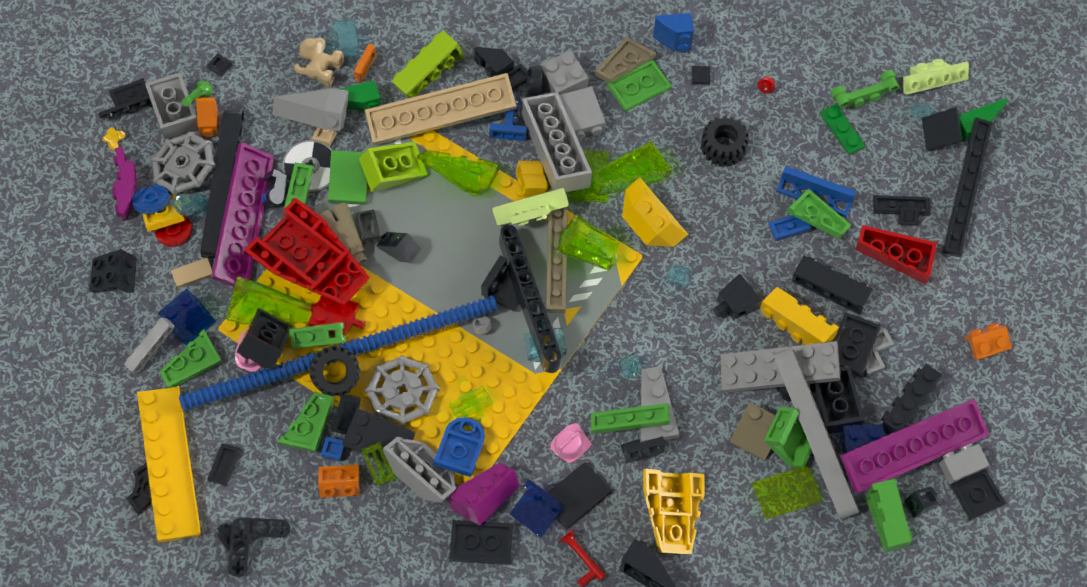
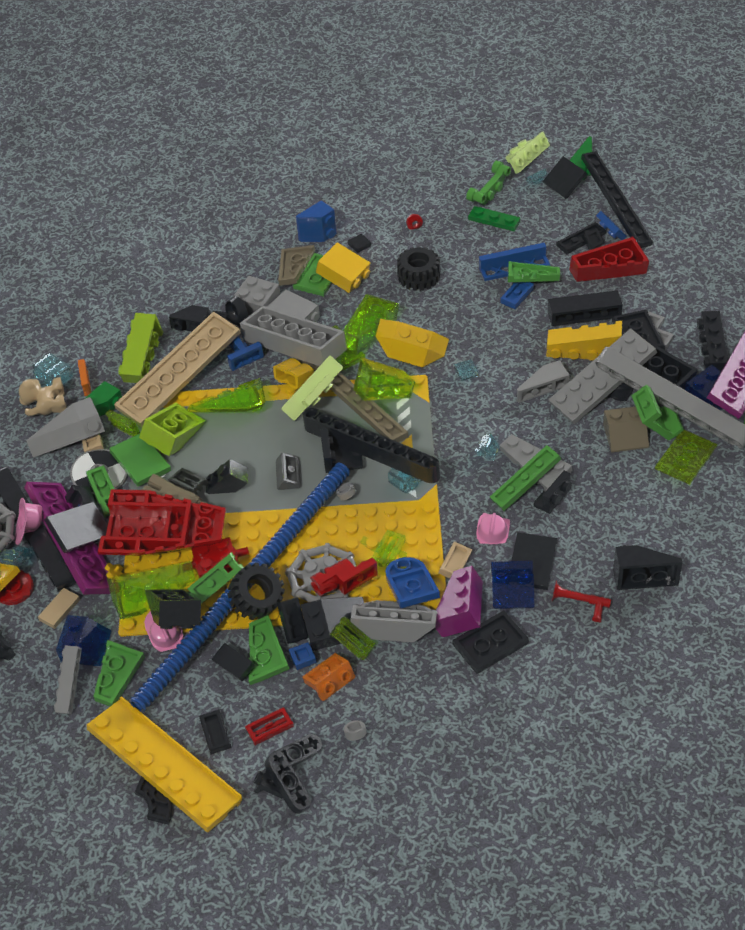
camera: 30 degrees left, 15 degrees down
(219, 179) = (28, 519): none -> bright pink piece
(248, 214) = (77, 527): none -> tile
(253, 271) = (113, 570): none -> yellow piece
(279, 416) = (233, 662): none -> black tile
(282, 484) = (280, 726): none -> red tile
(321, 540) = (355, 730): none -> light grey tile
(360, 132) = (123, 423): none -> clear neon green tile
(410, 406) = (344, 576): none -> red plate
(453, 272) = (287, 472): none -> dark grey slope
(515, 451) = (455, 559): none -> tan tile
(660, 96) = (343, 267): none -> yellow brick
(673, 508) = (614, 516): yellow wedge -> none
(734, 334) = (545, 380): none -> light grey slope
(737, 299) = (526, 357): black torso -> none
(937, 212) = (614, 230): none -> blue plate
(989, 340) = (725, 278): orange bracket -> none

